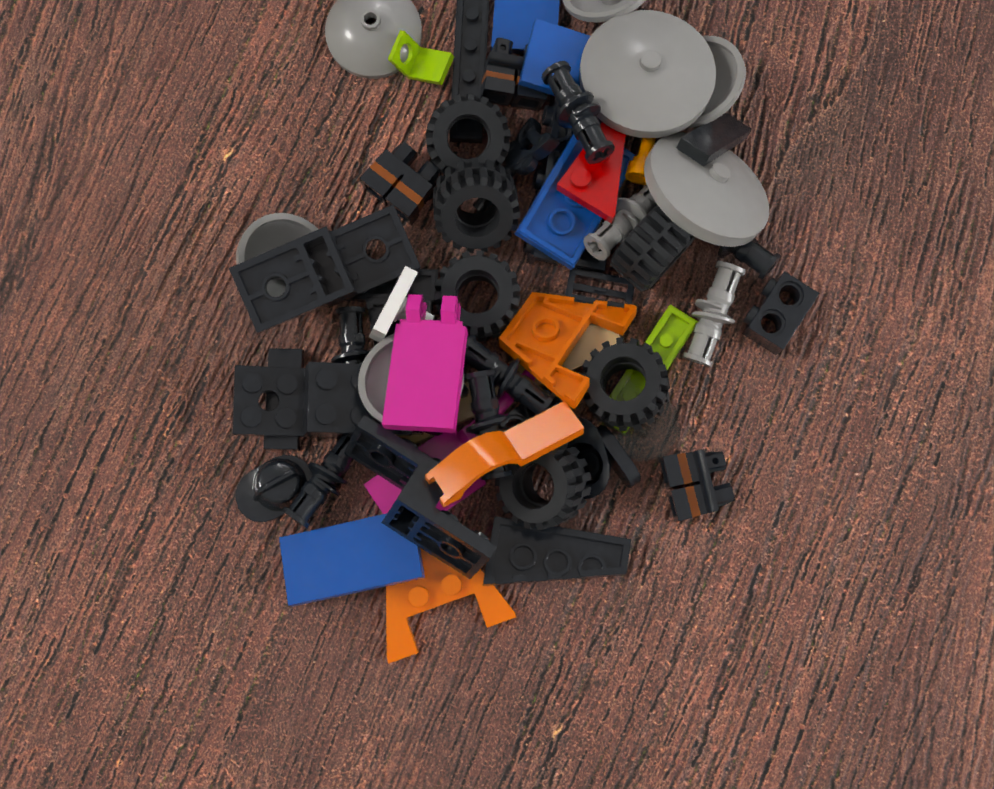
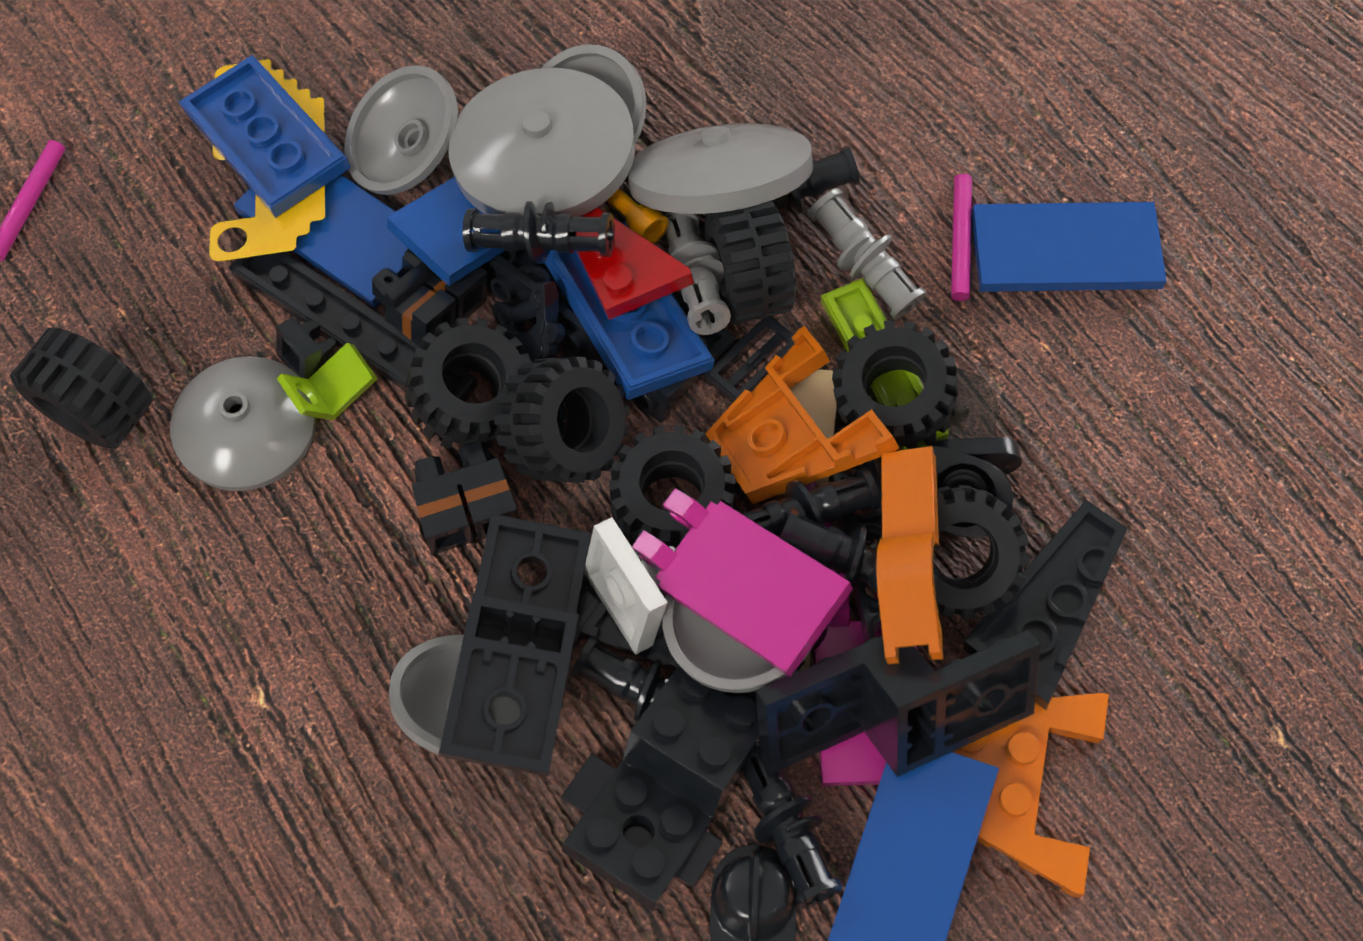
camera: 65 degrees left, 15 degrees down
(433, 26) = (297, 347): none -> black tile
(691, 468) = (1075, 389): black hips -> none
(713, 139) = (668, 130): black tile -> none
(771, 365) = (961, 237): none -> dark pink bar
(784, 316) = (917, 187): black brick -> none
(809, 435) = (1067, 246): none -> blue tile

